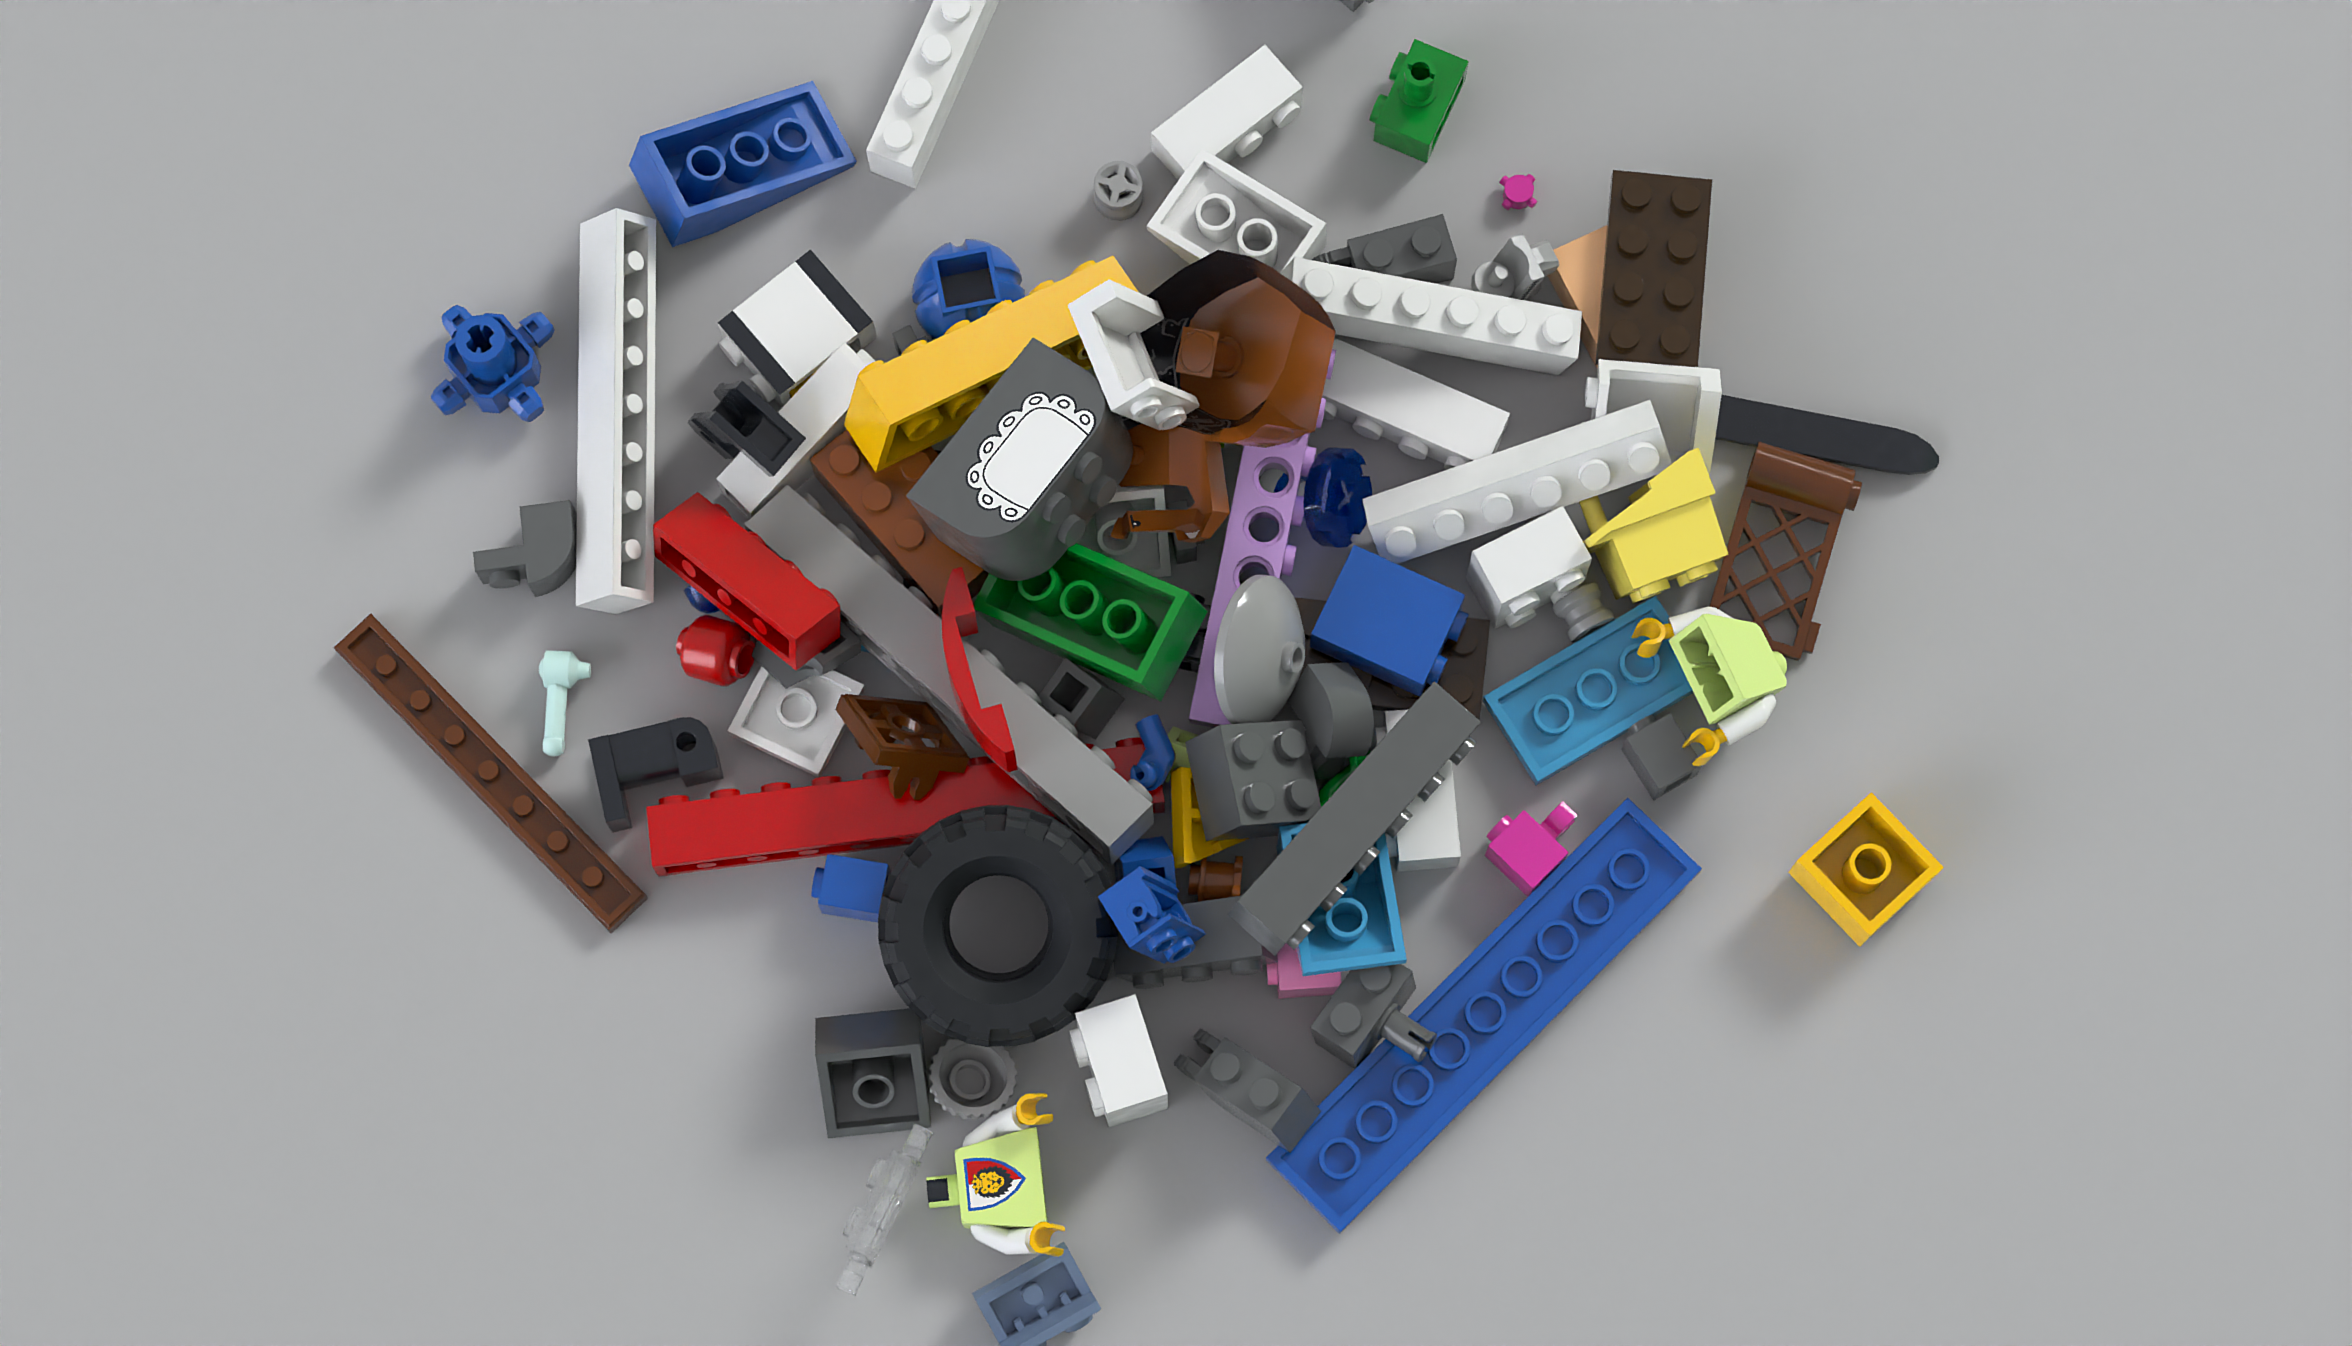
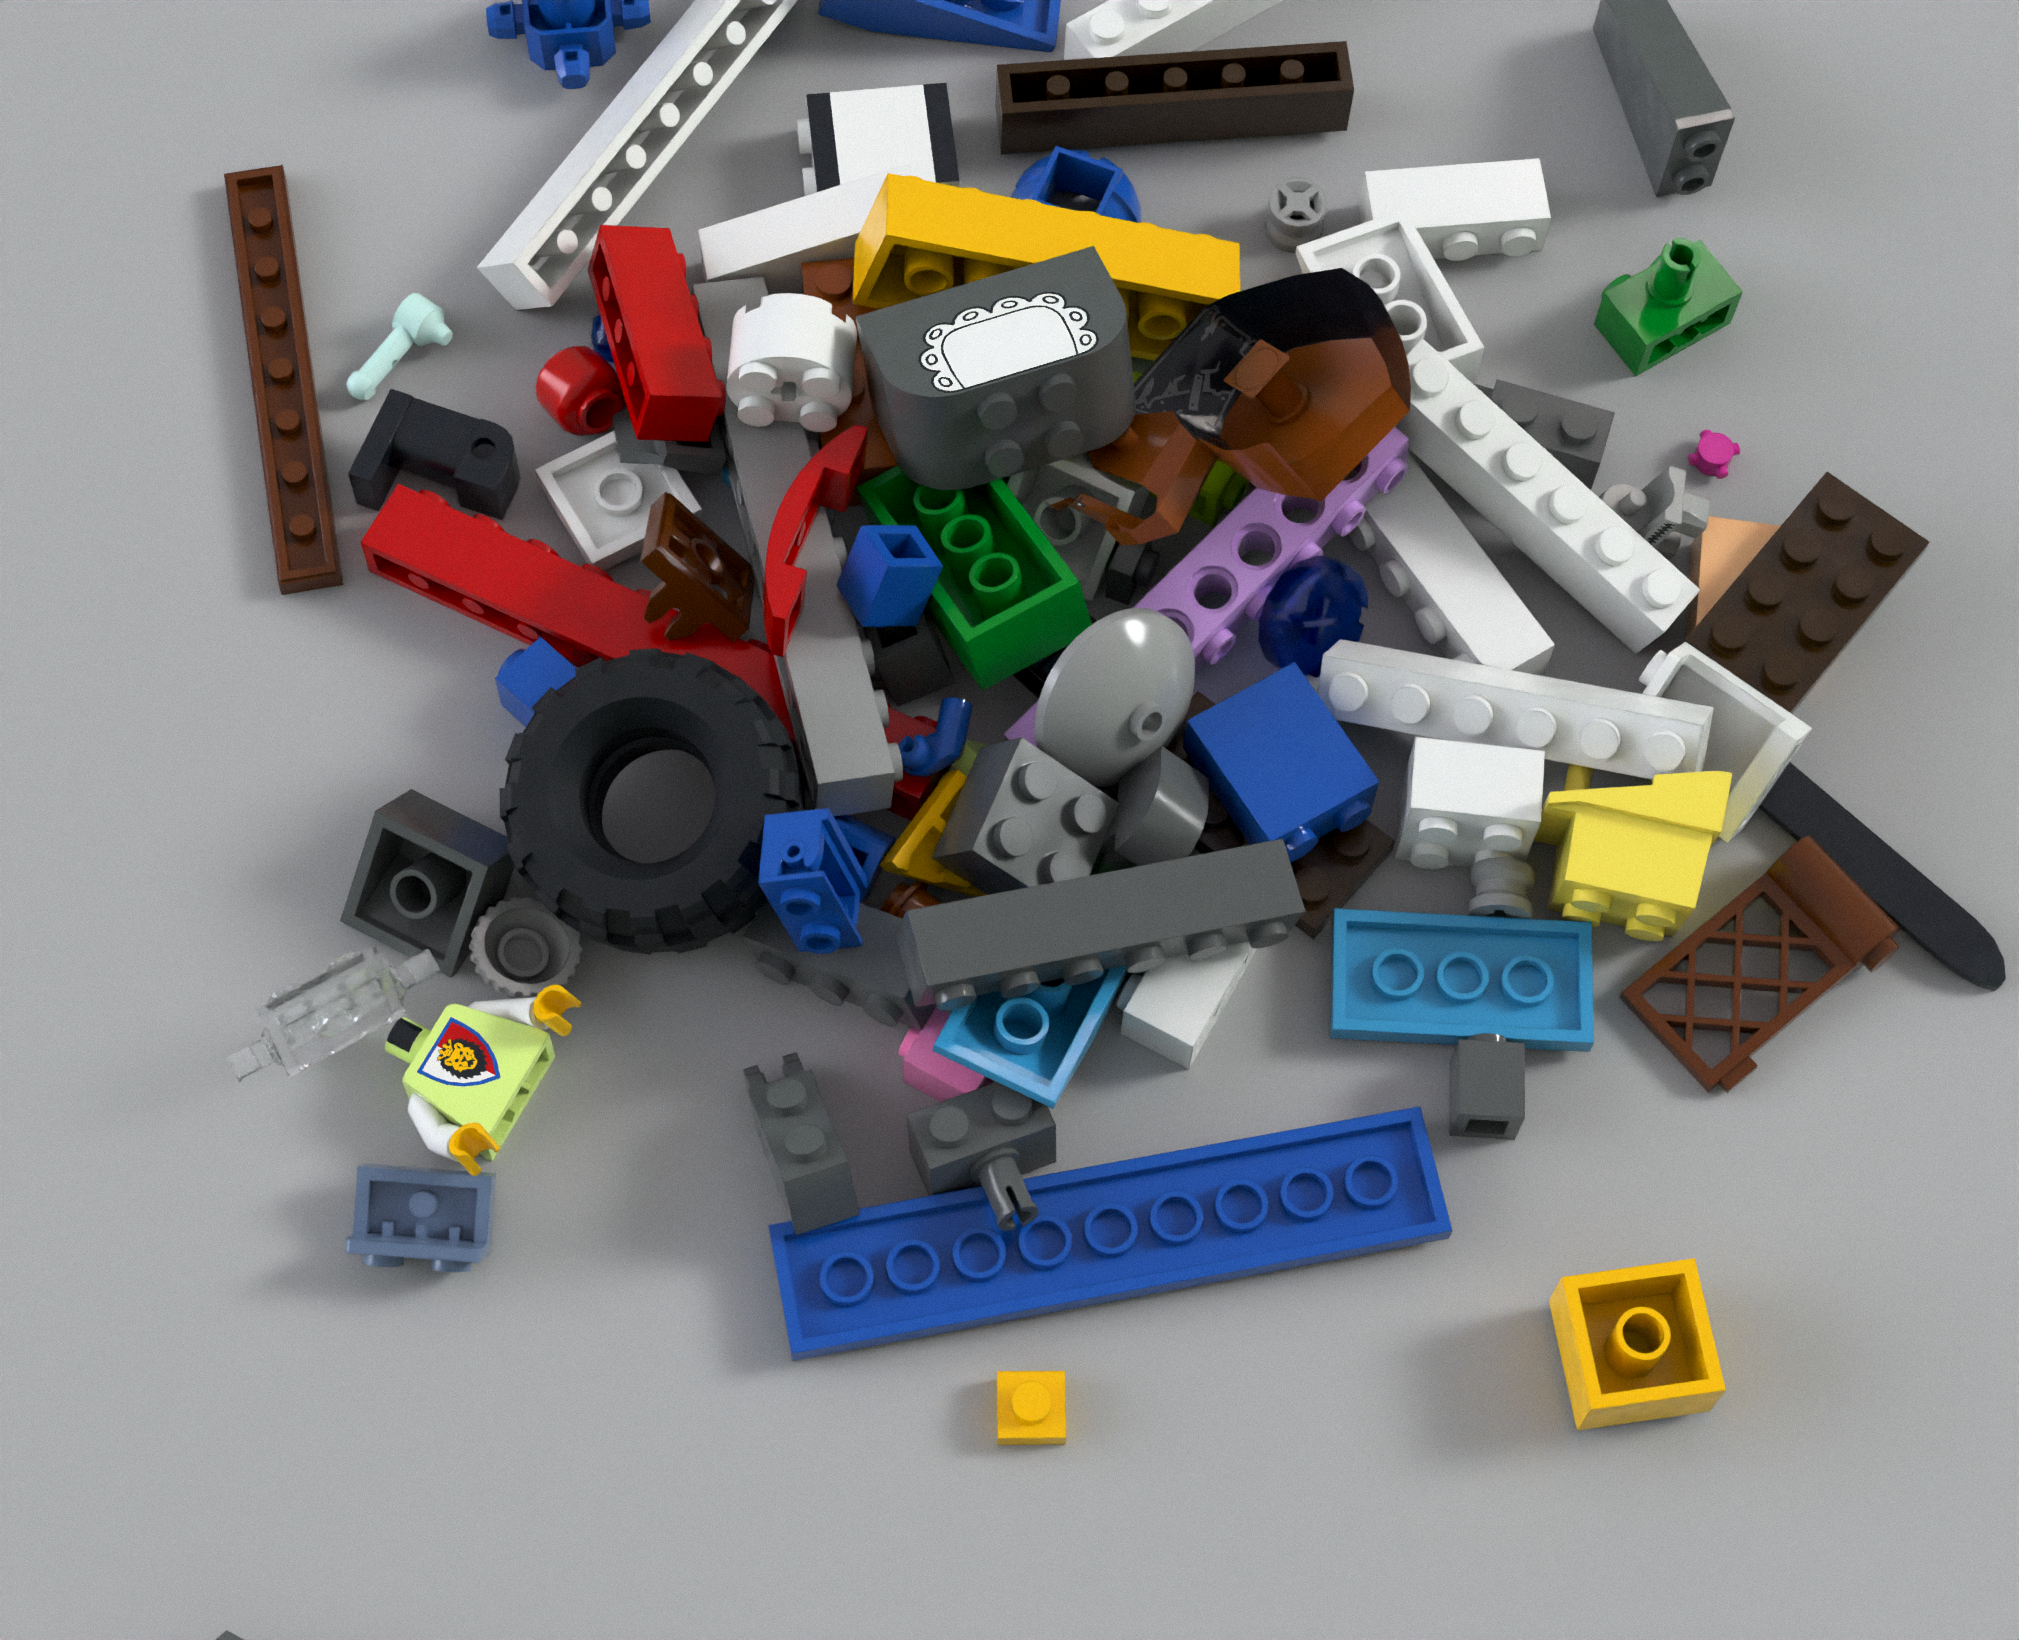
camera: 30 degrees right, 10 degrees down
(546, 552) = (478, 207): dark grey brick -> none
(747, 425) = (763, 202): black piece -> none
(873, 550) = (791, 362): none -> white brick
(976, 156) = (1173, 97): none -> dark brown brick
(1051, 666) = (889, 575): none -> blue brick
(1110, 329) = (1175, 301): white panel -> none
(1121, 1060) = (682, 1023): white brick -> none
(1511, 1162) = (1031, 1408): none -> yellow plate
(1529, 850) = (1273, 1091): dark pink brick -> none
(1727, 669) = (1617, 1035): yellowish green torso -> none

